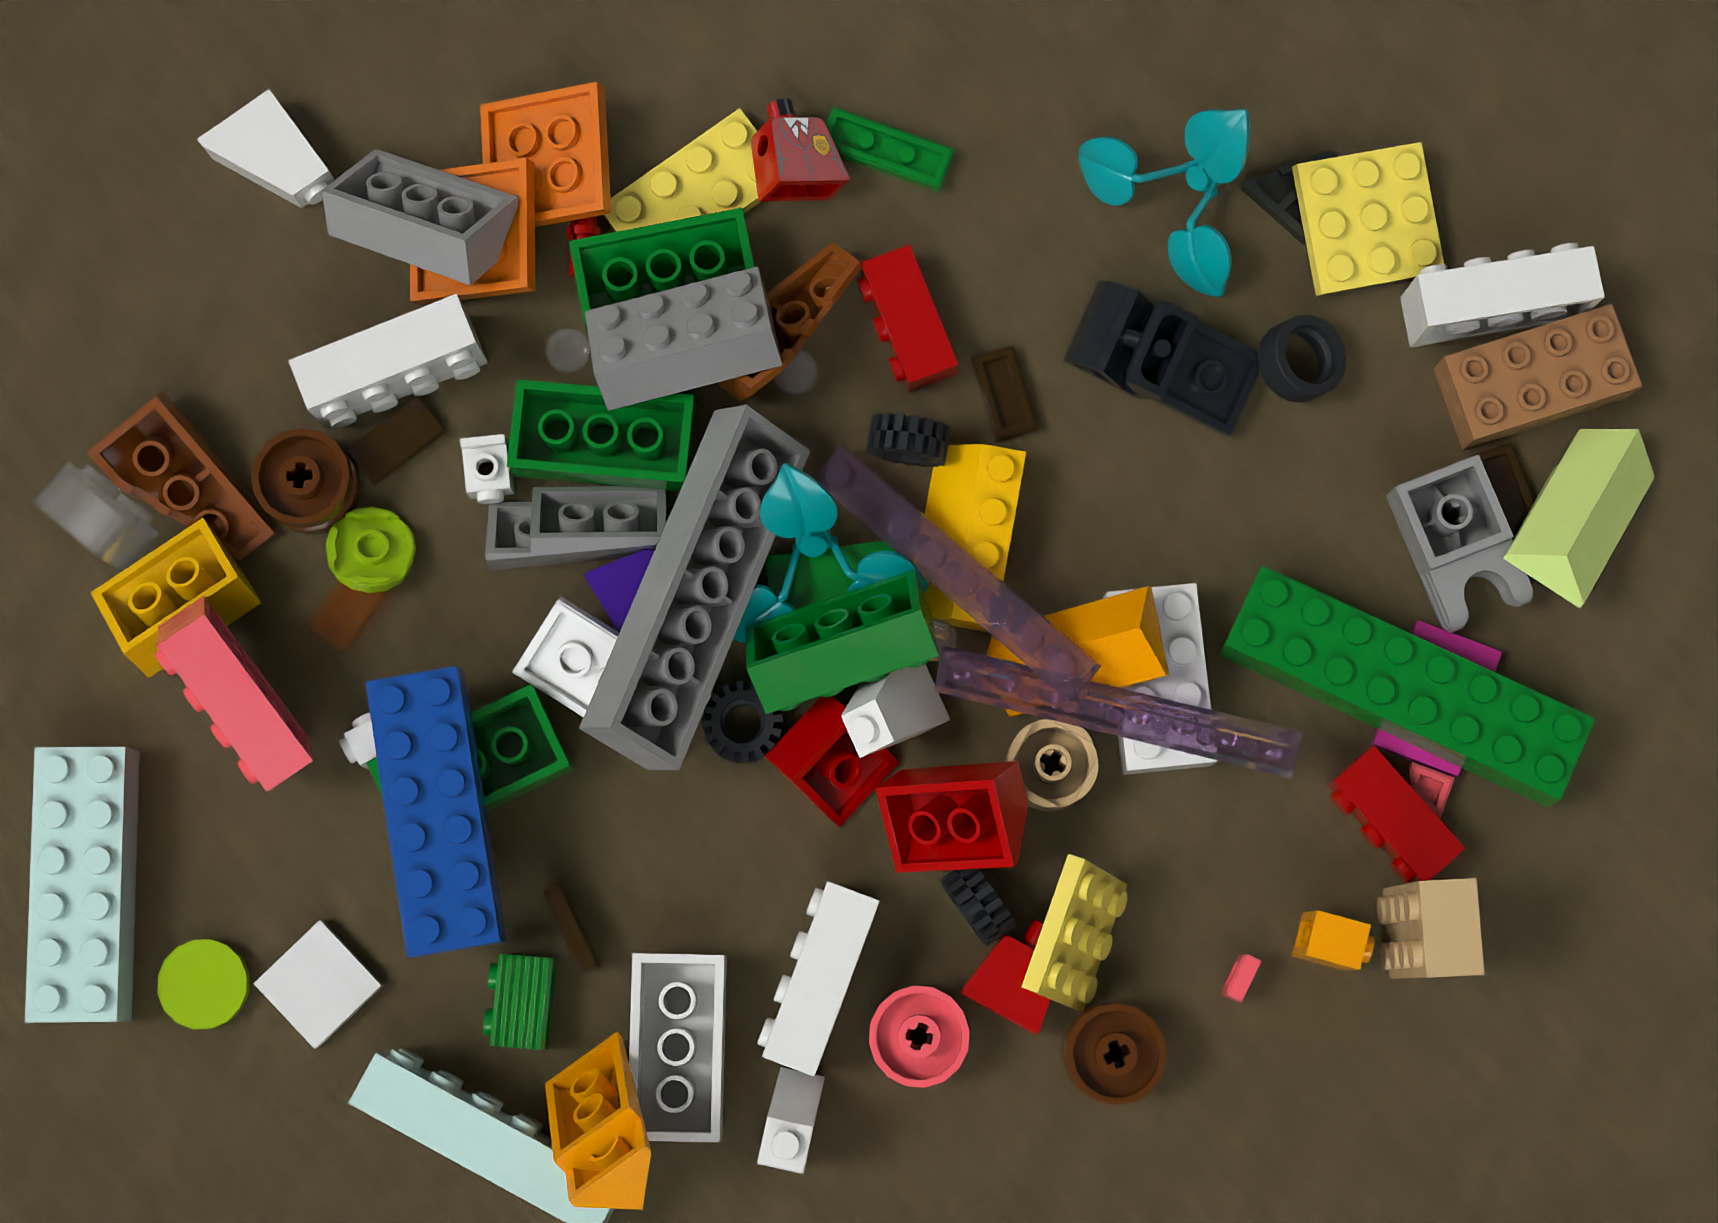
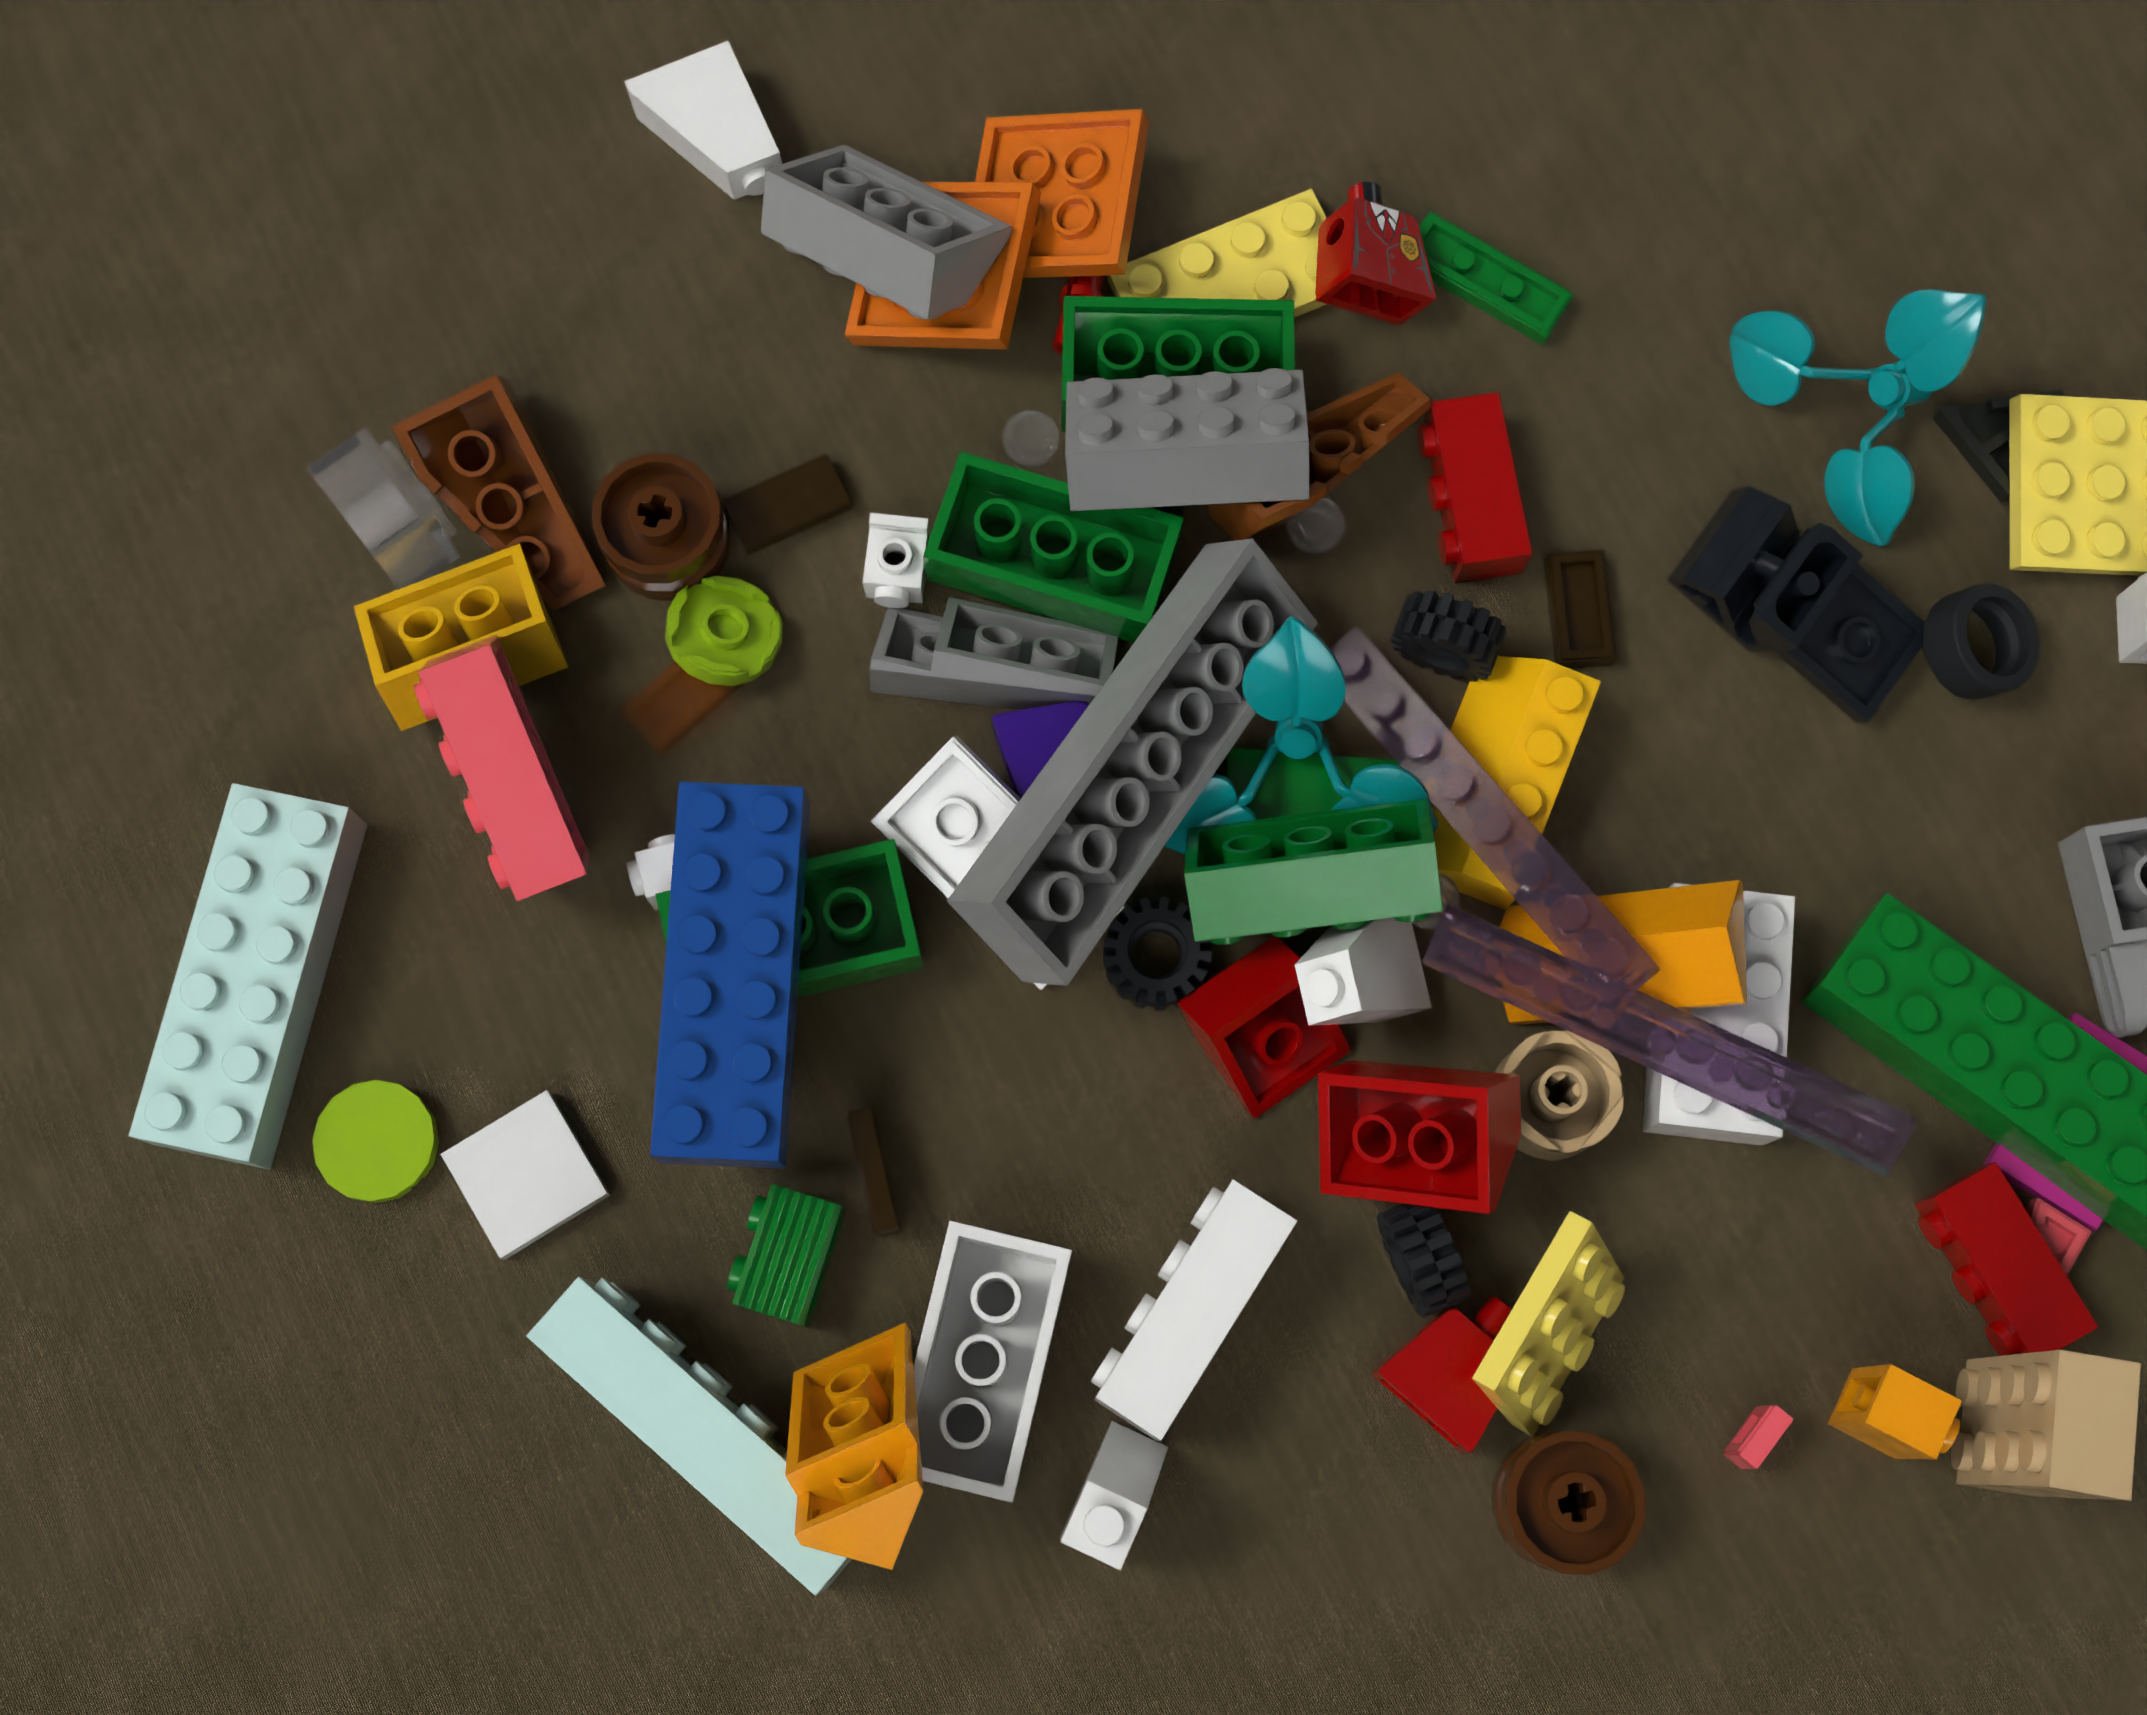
camera: 10 degrees right, 5 degrees down
(389, 363) = (801, 399): white brick -> none
(945, 1042) = (1345, 1413): coral wheel -> none

